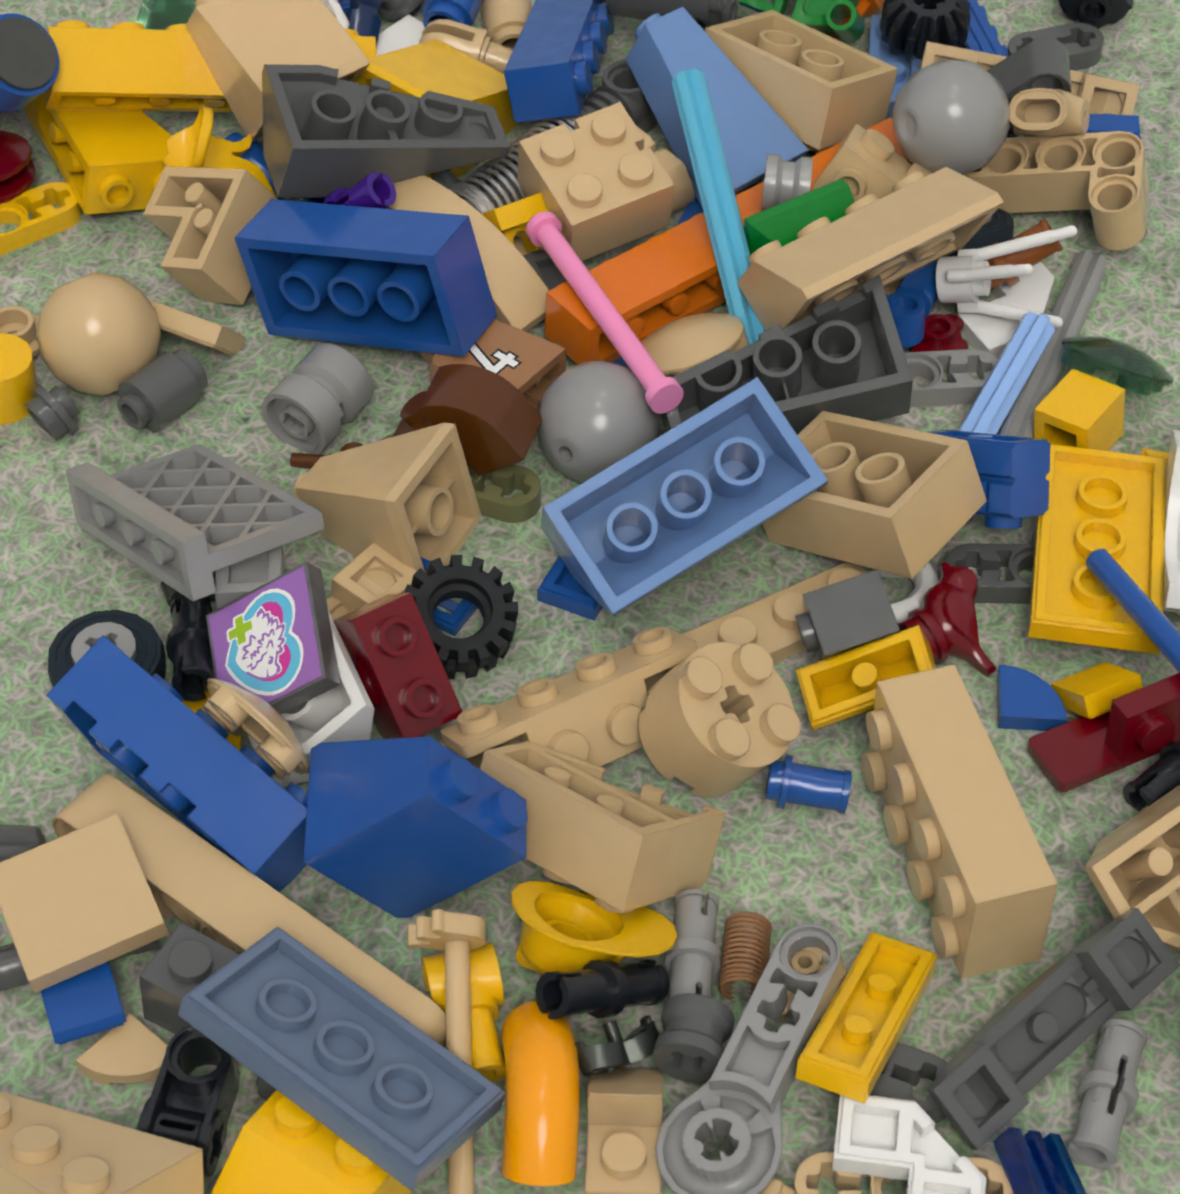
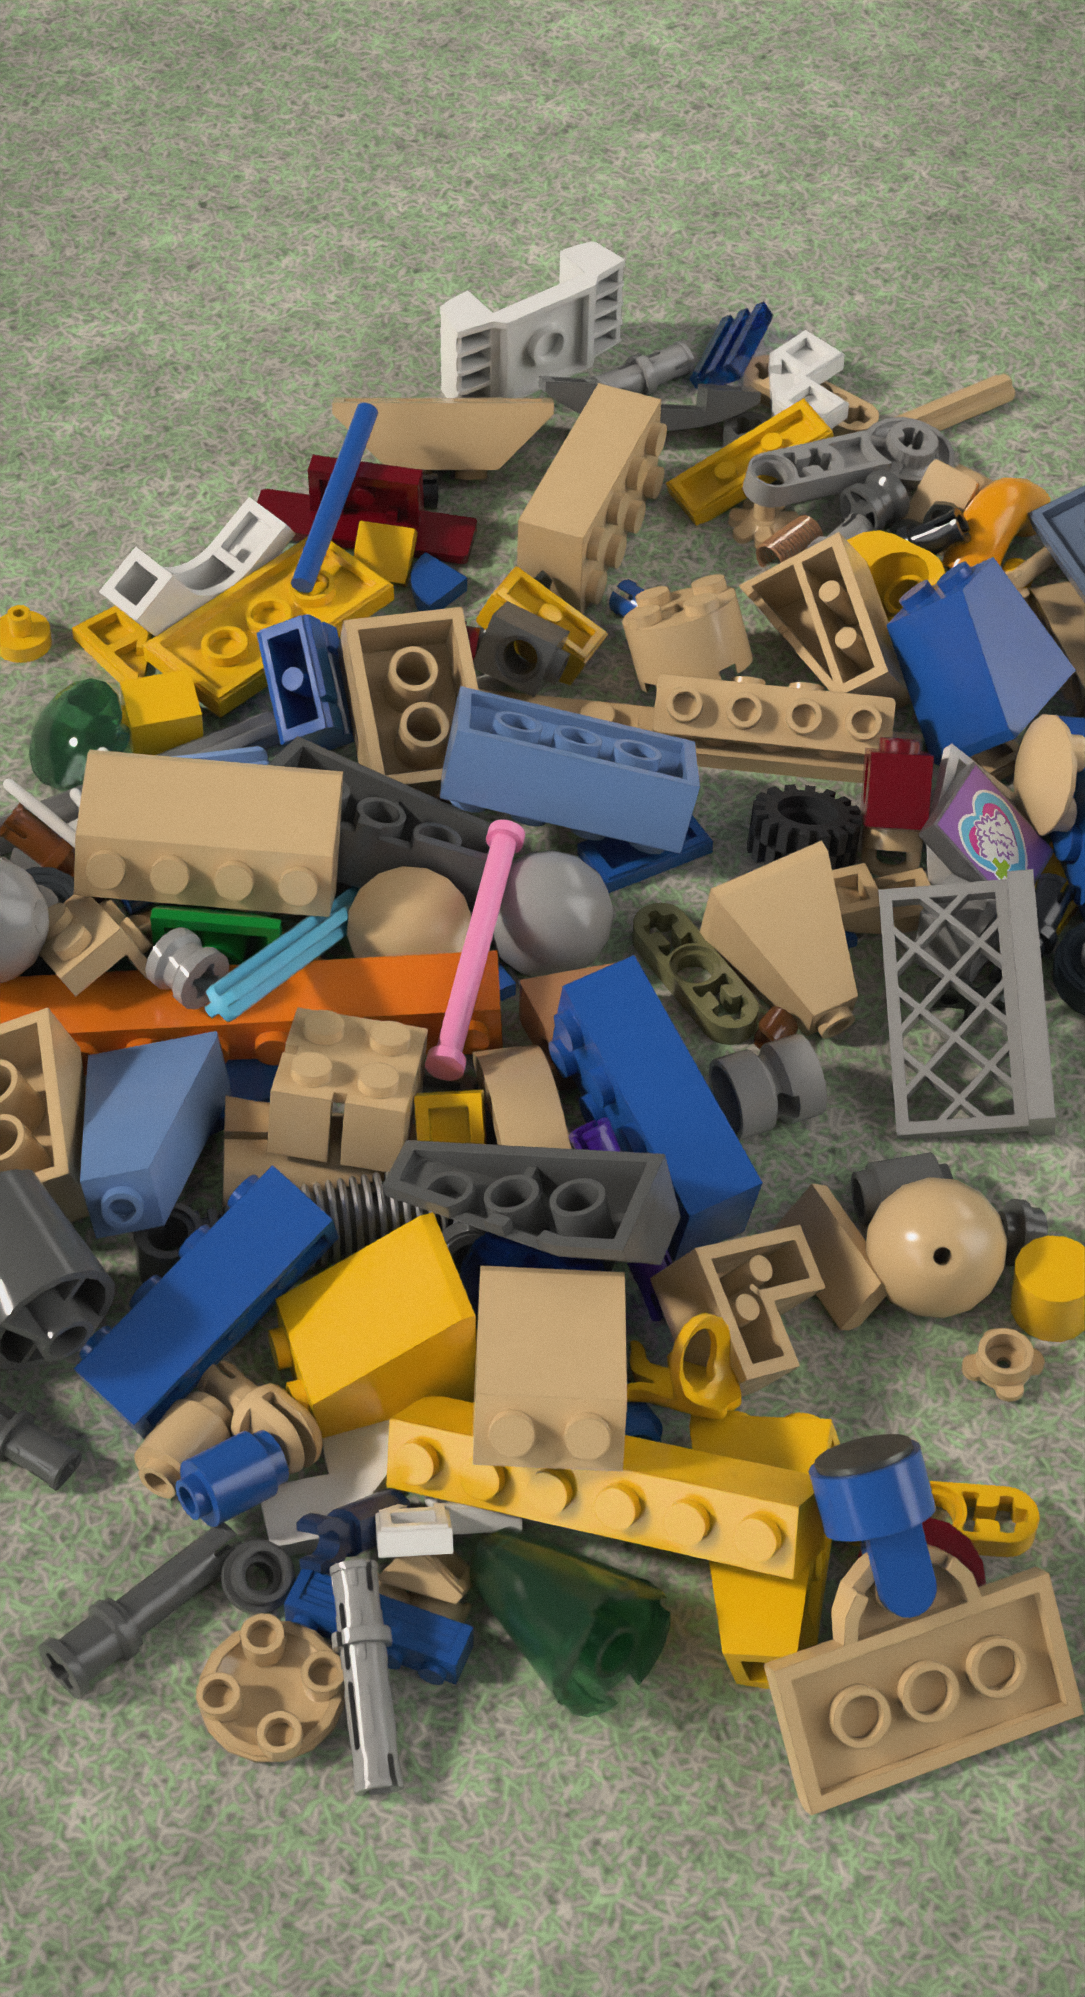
camera: 145 degrees left, 0 degrees up
(488, 411) = (676, 940): reddish brown brick -> none

